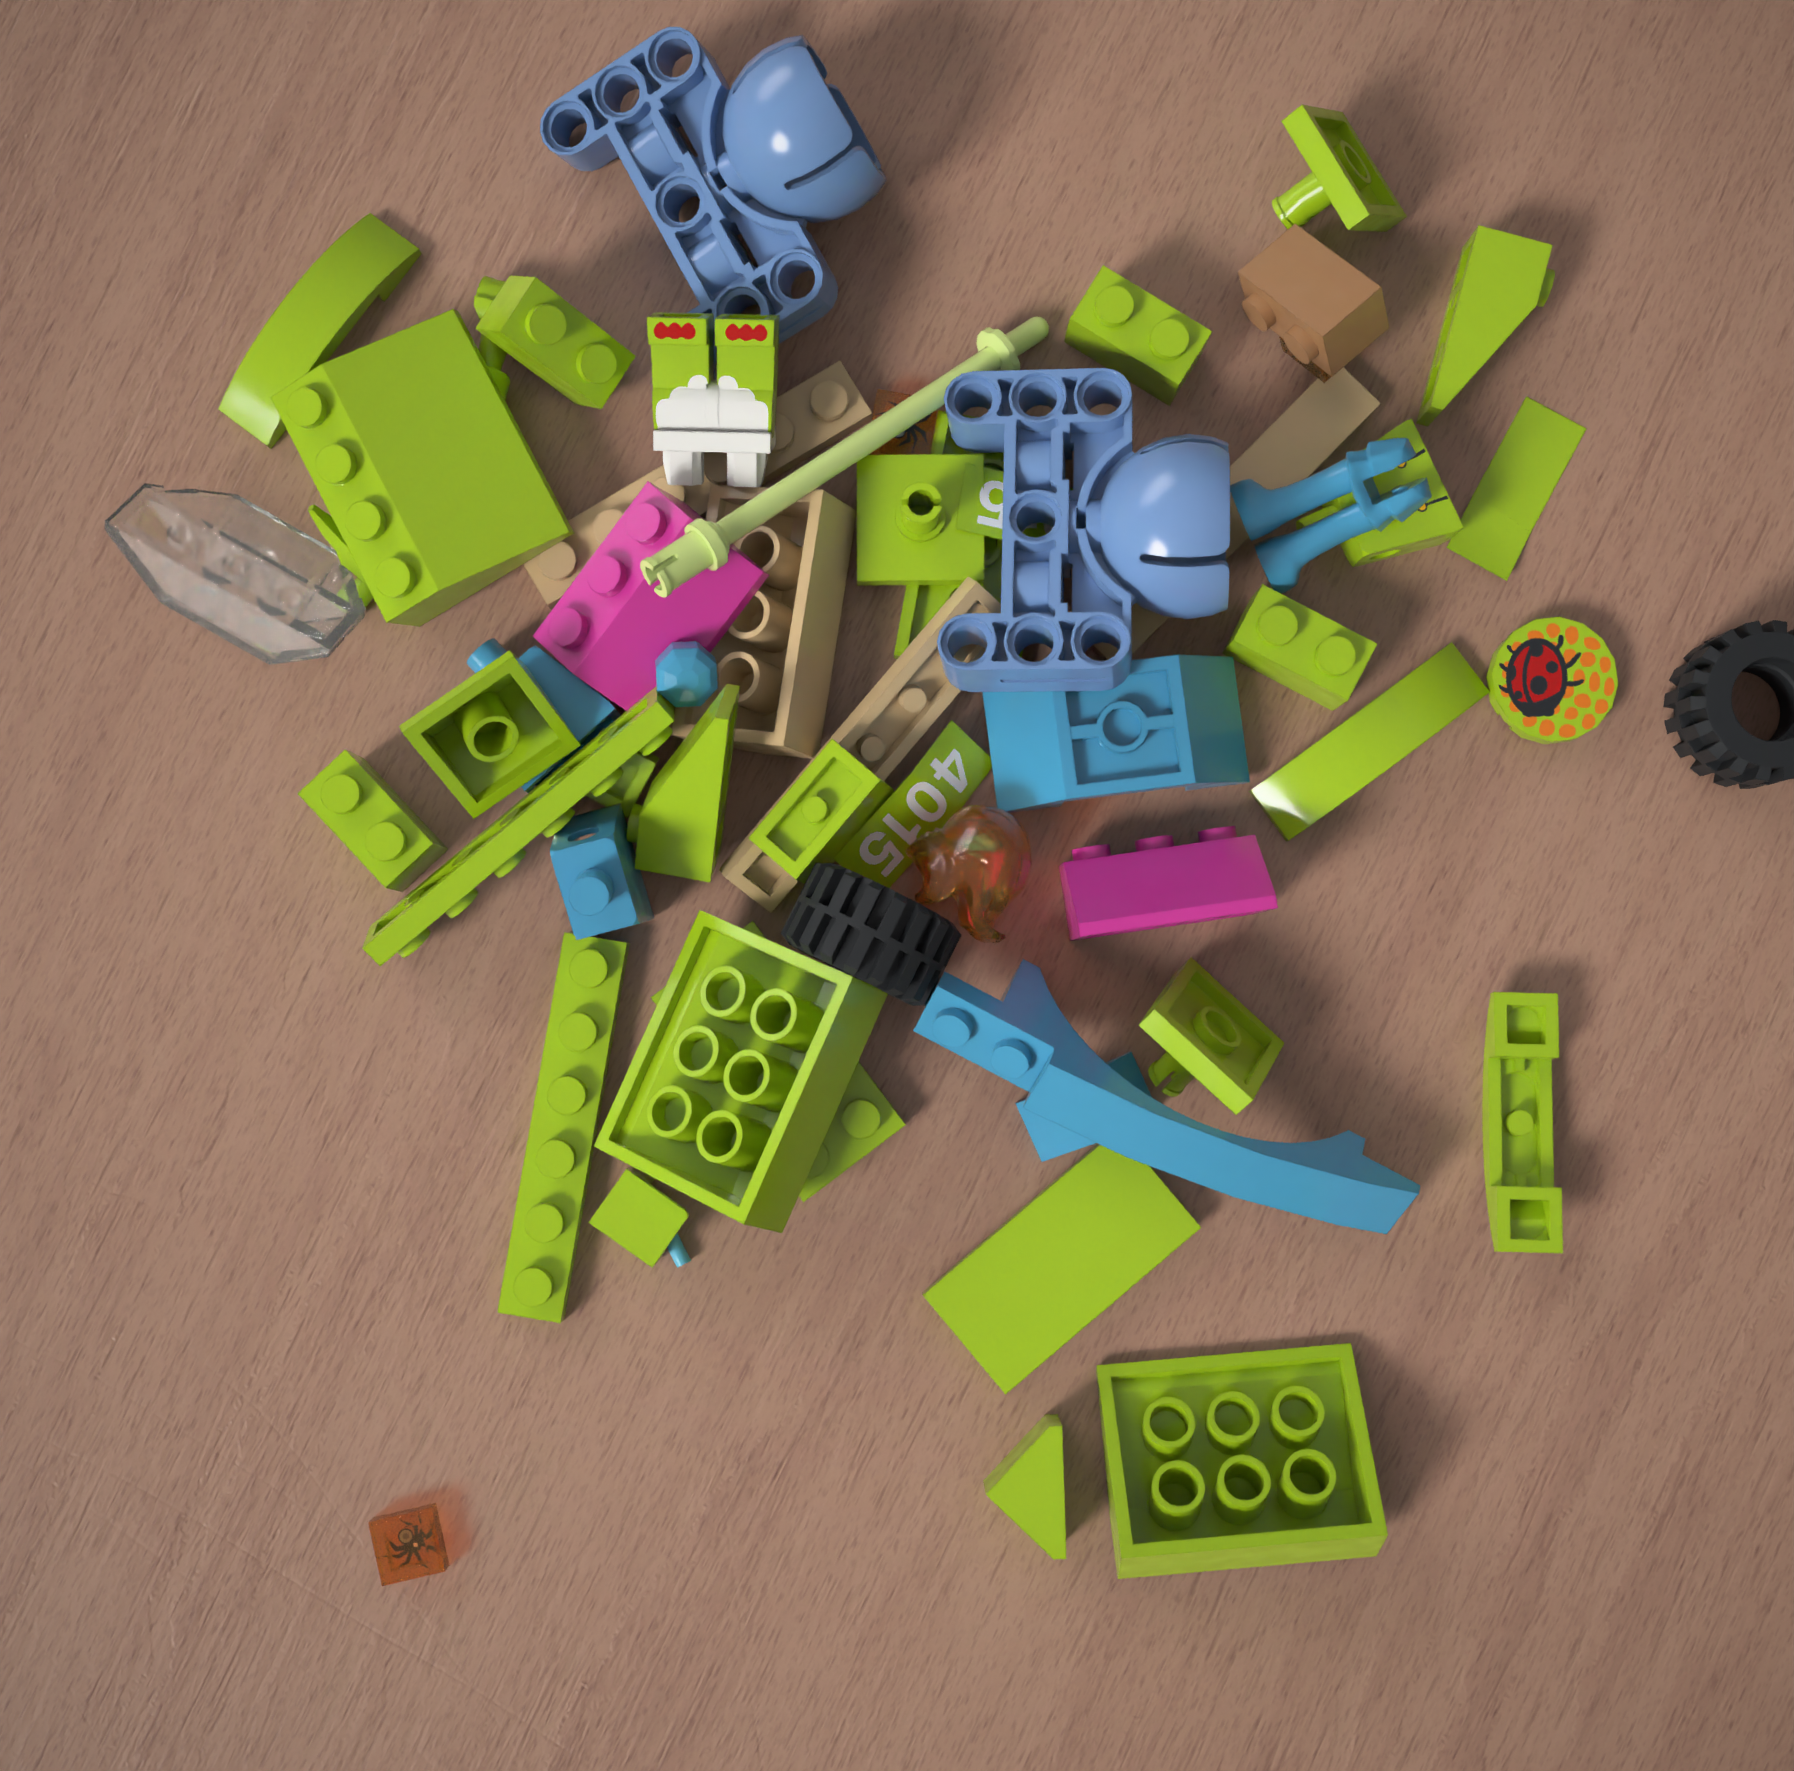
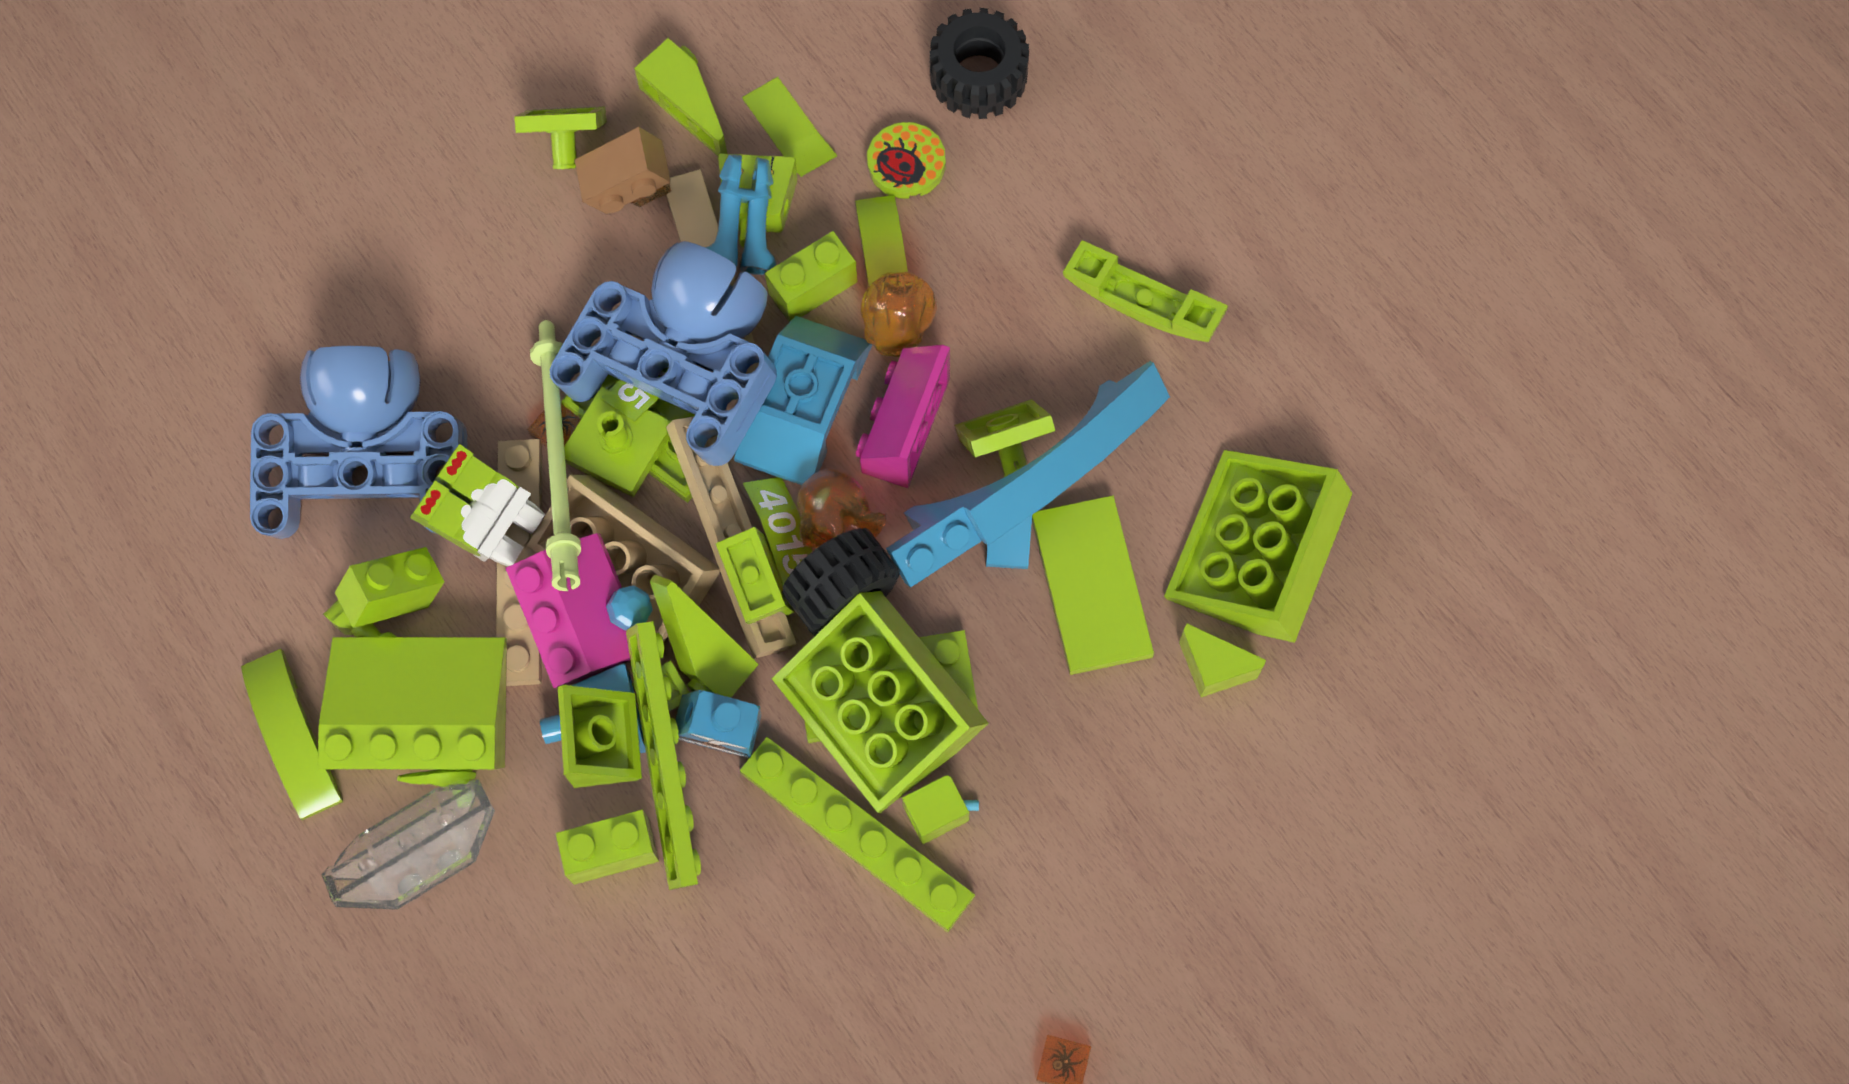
camera: 60 degrees left, 15 degrees down
(1136, 335) = (581, 269): lime brick -> none
(1305, 797) = (897, 312): none -> clear orange hair

